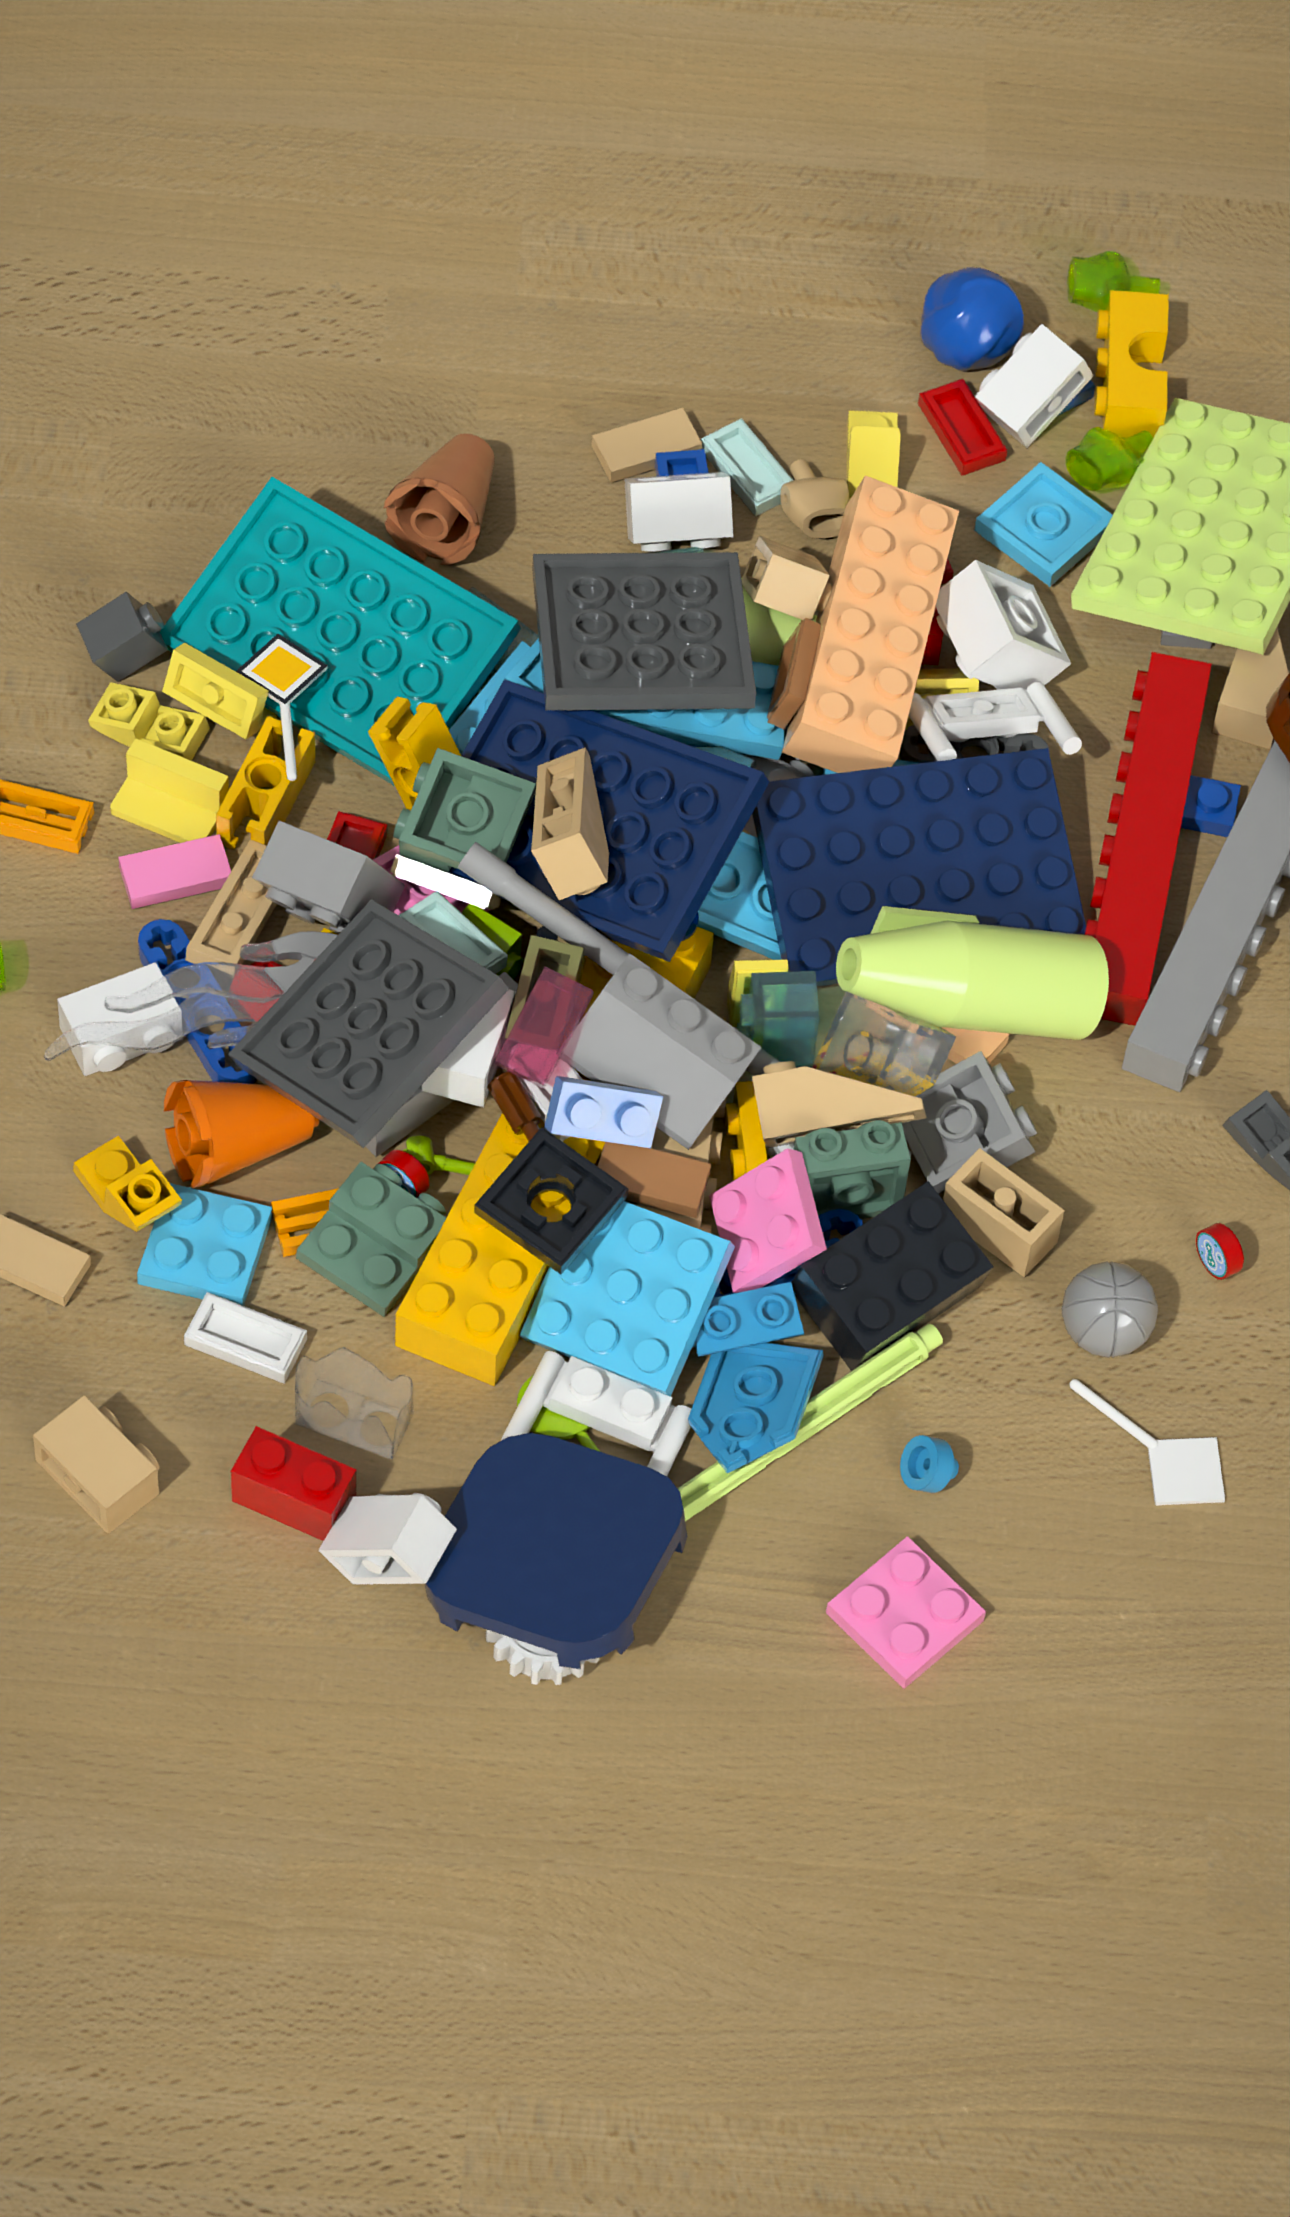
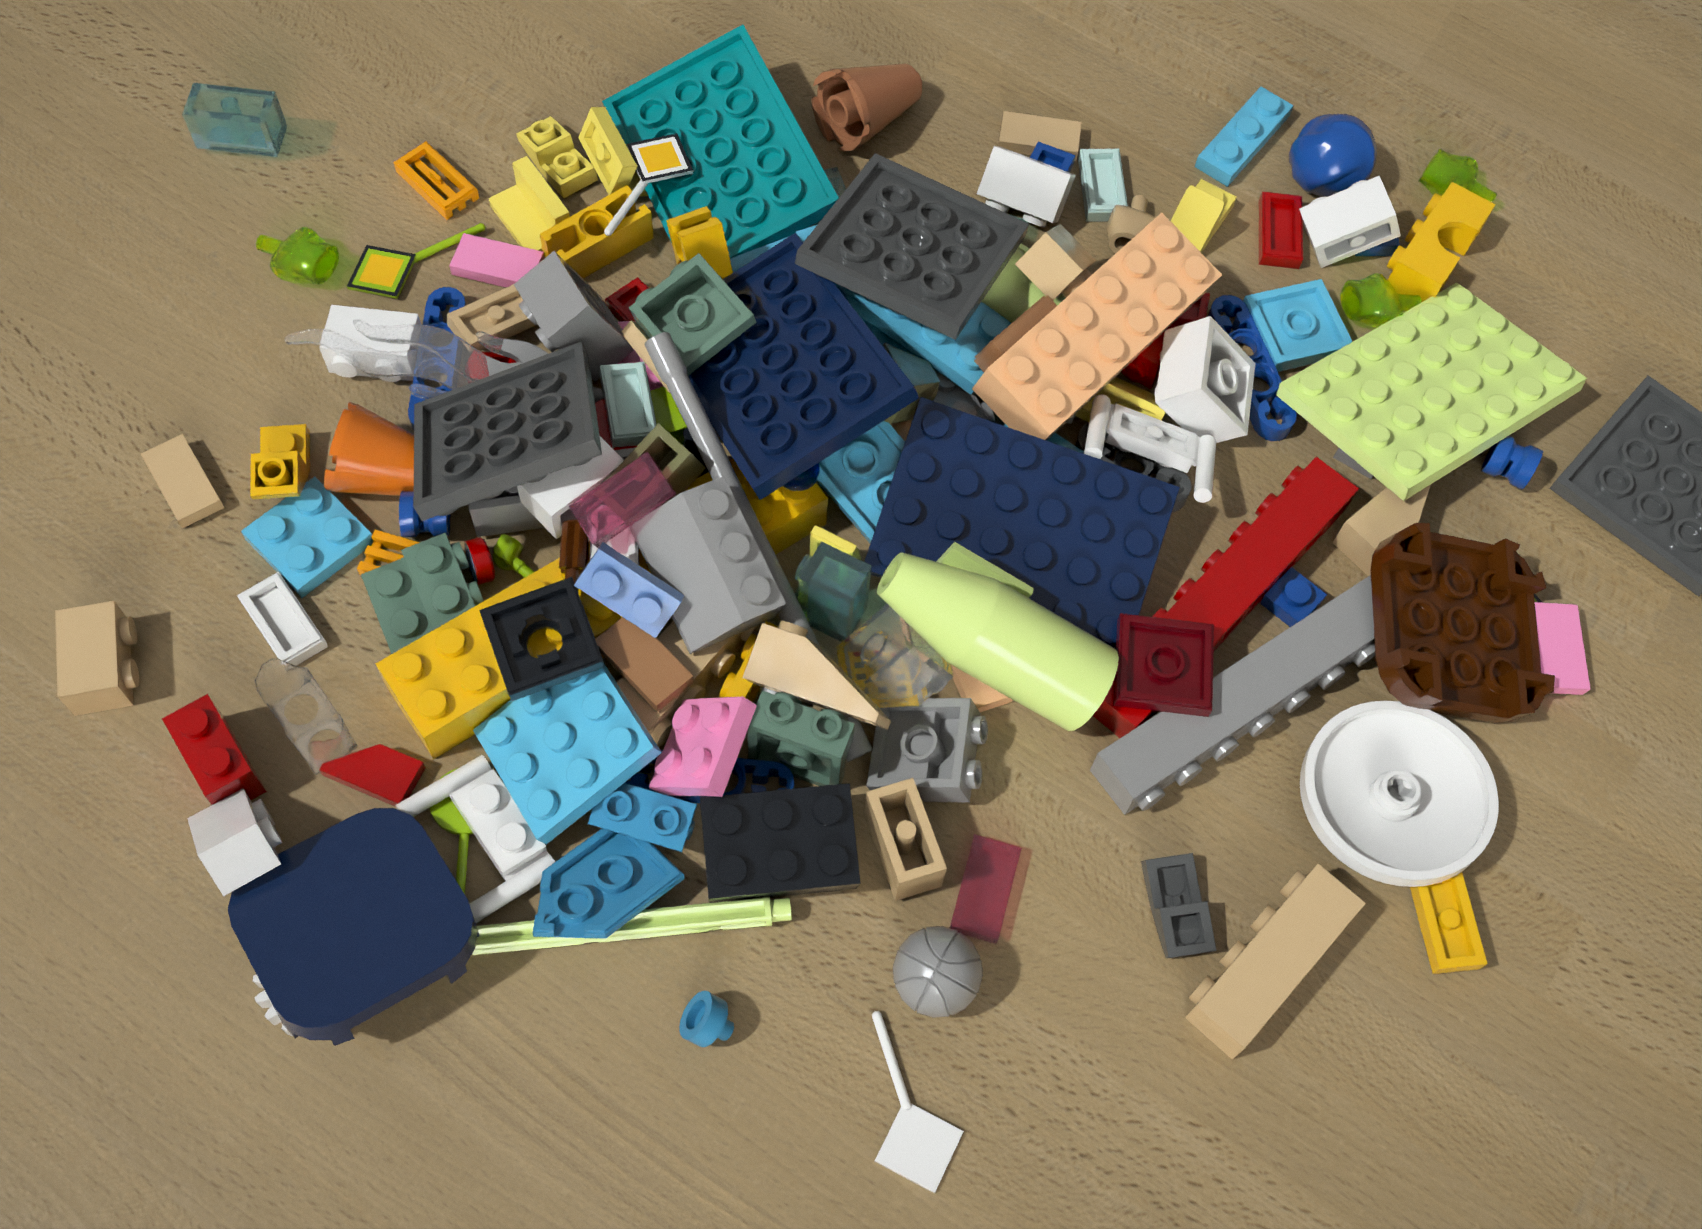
camera: 30 degrees right, 5 degrees up
(61, 939) = (386, 270): none -> piece
(123, 636) = (575, 87): dark grey brick -> none
(313, 1159) = (412, 525): none -> blue wheel
(454, 1424) = (377, 773): none -> red tile
(569, 826) = (748, 359): tan slope -> none
(859, 339) = (1243, 136): none -> medium azure plate
(905, 1612) = (603, 1138): bright pink plate -> none
(1001, 557) = (1247, 333): none -> blue beam
(1097, 1219) = (985, 889): none -> clear pink tile
(1139, 926) = (1164, 665): none -> dark red tile
(1219, 1251) = (1066, 970): tile -> none

